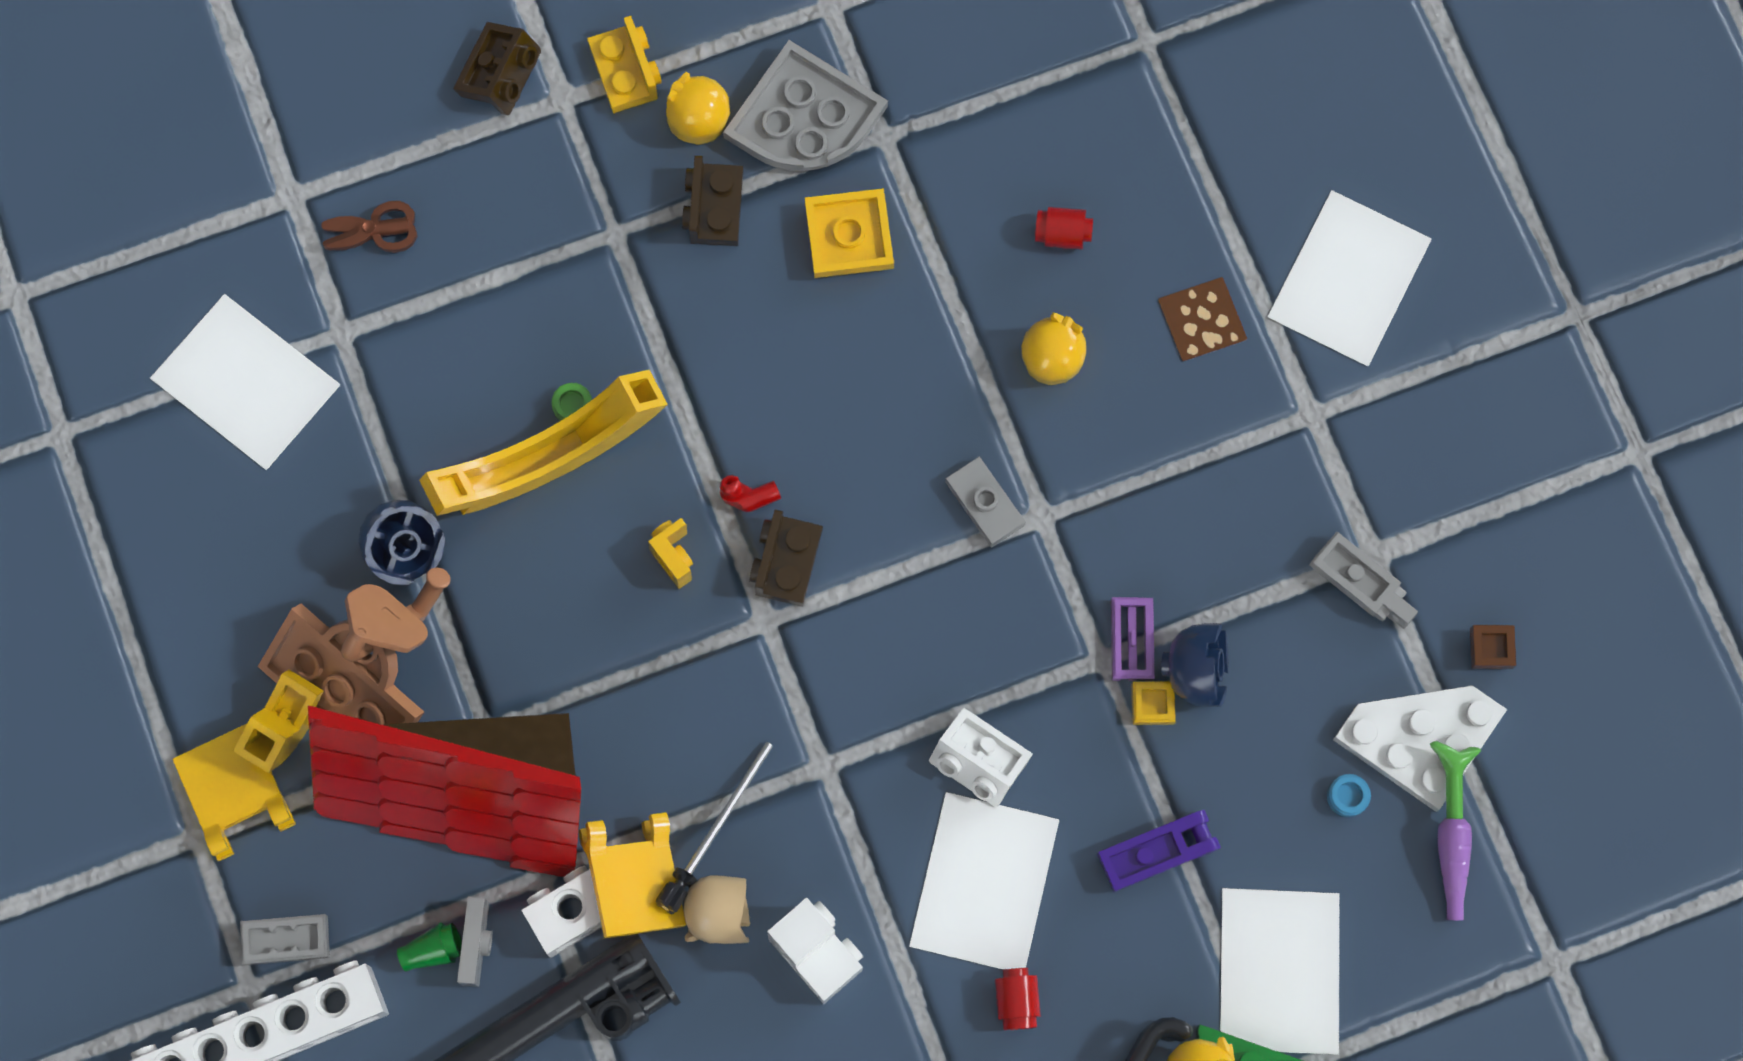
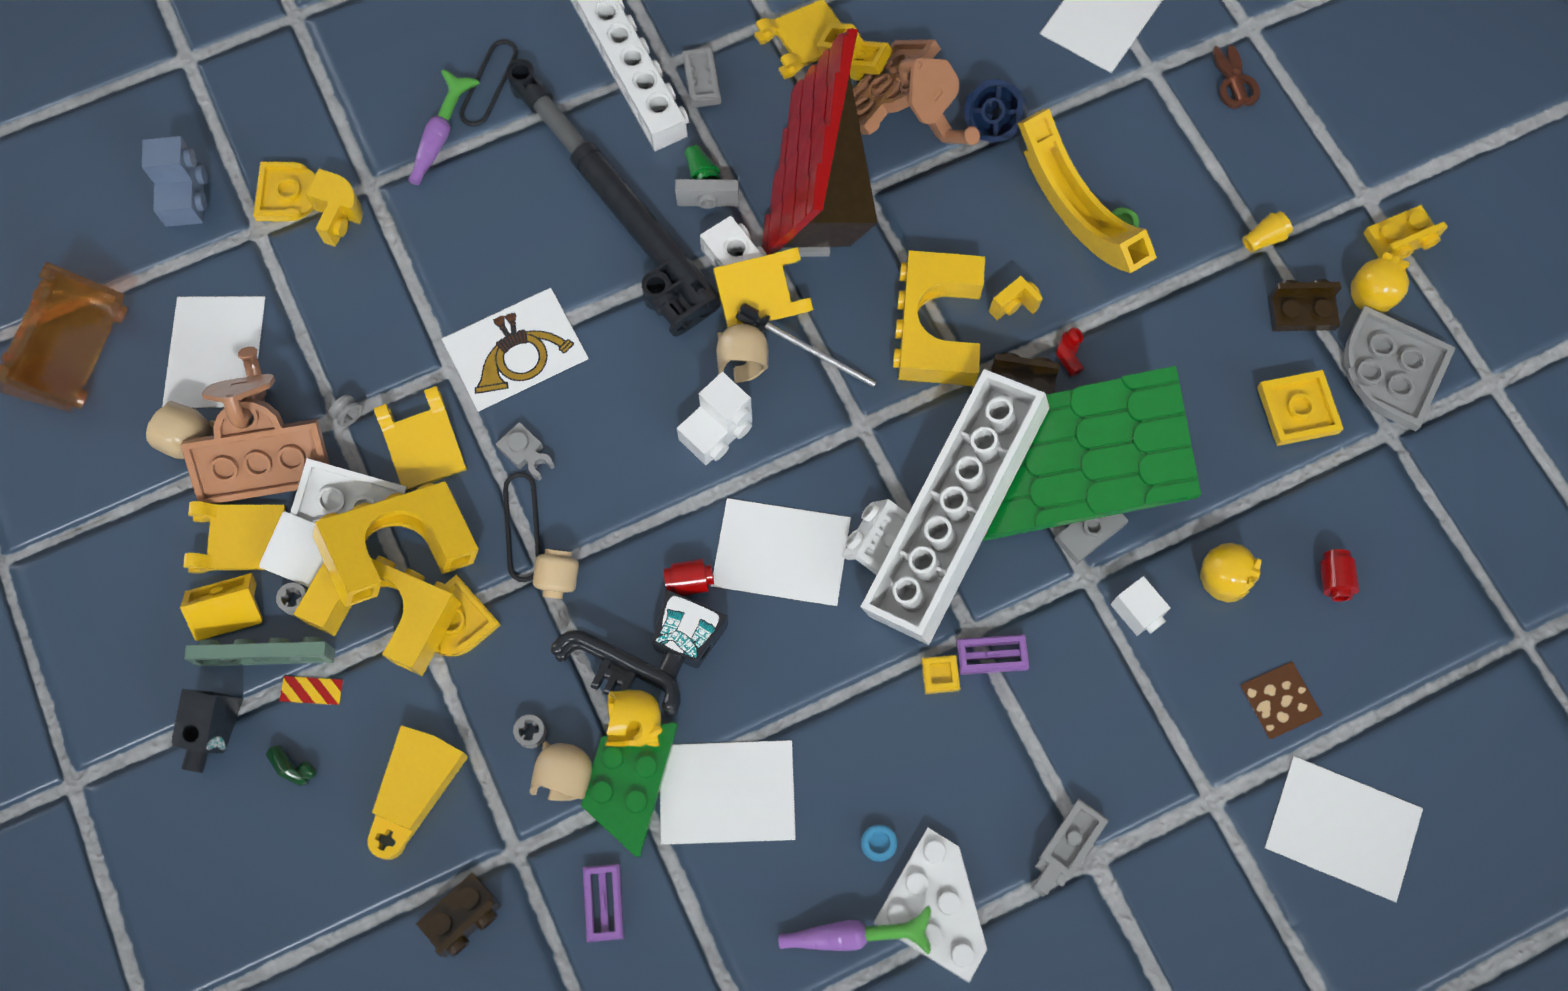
camera: 90 degrees right, 5 degrees down
(498, 67) = (1382, 147): dark brown bracket -> none
(607, 227) = (1269, 231): none -> yellow cone
(736, 684) = (921, 354): none -> yellow arch
(904, 503) = (1103, 455): none -> green piece
(961, 657) = (956, 506): none -> white brick
(1089, 458) = (1141, 607): none -> white brick
(1090, 1007) = (686, 632): none -> torso
(1157, 851) = (816, 682): dark purple plate -> none
(1198, 664) = (977, 705): dark blue cylinder -> none
(1493, 646) = (1024, 967): reddish brown plate -> none

